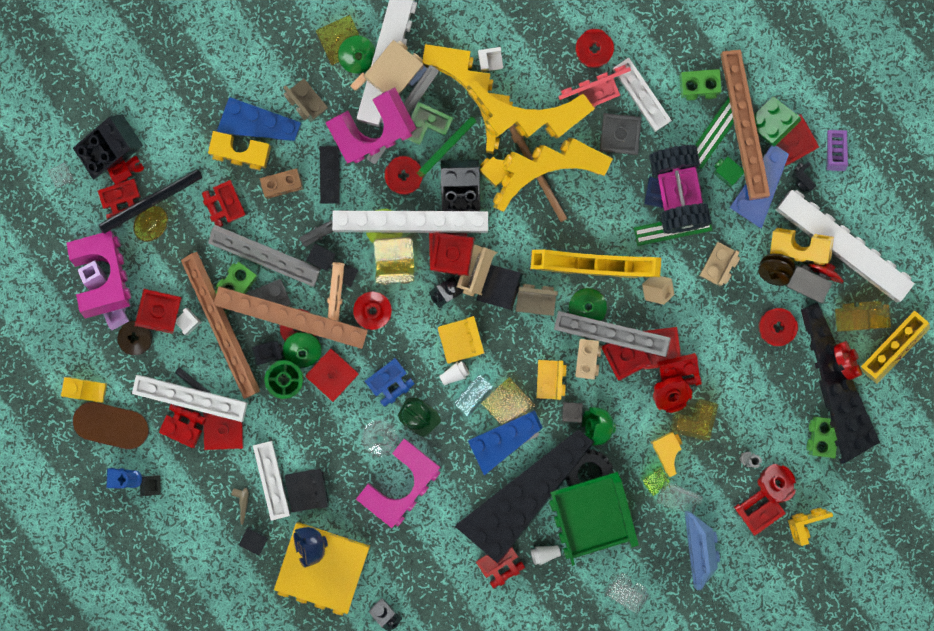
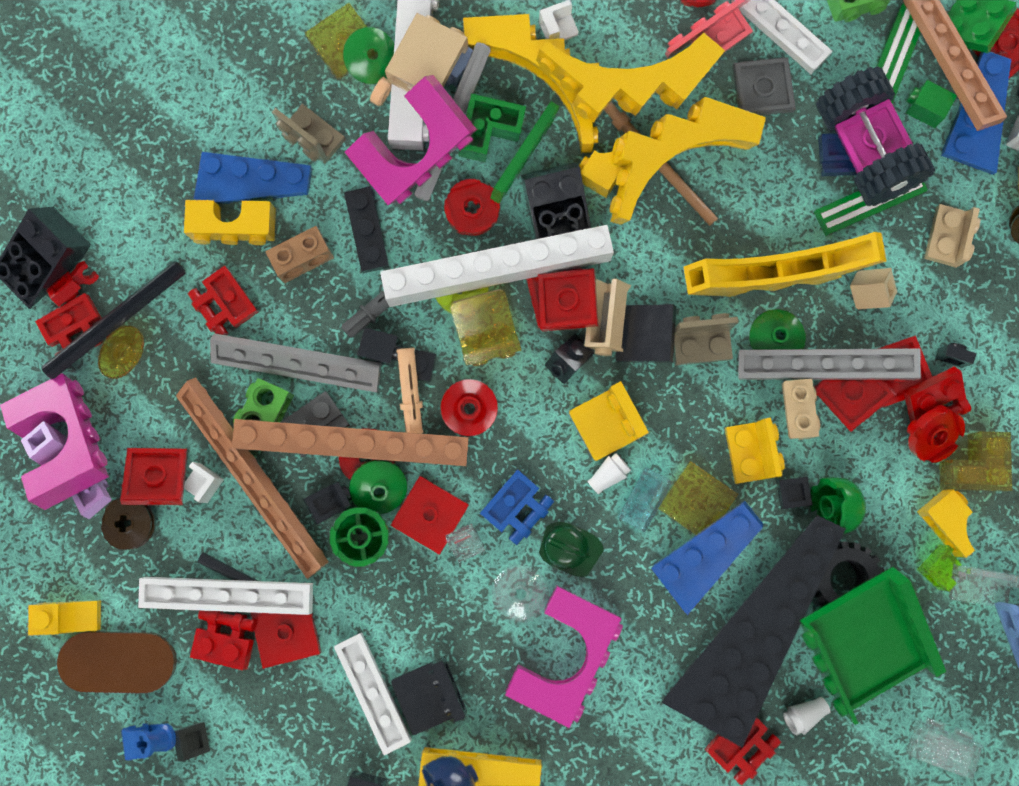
camera: 10 degrees left, 5 degrees down
(243, 495) = (336, 729): dark tan bar -> none
(351, 398) = (465, 543): none -> clear plate
(701, 345) = (956, 355): none -> black plate

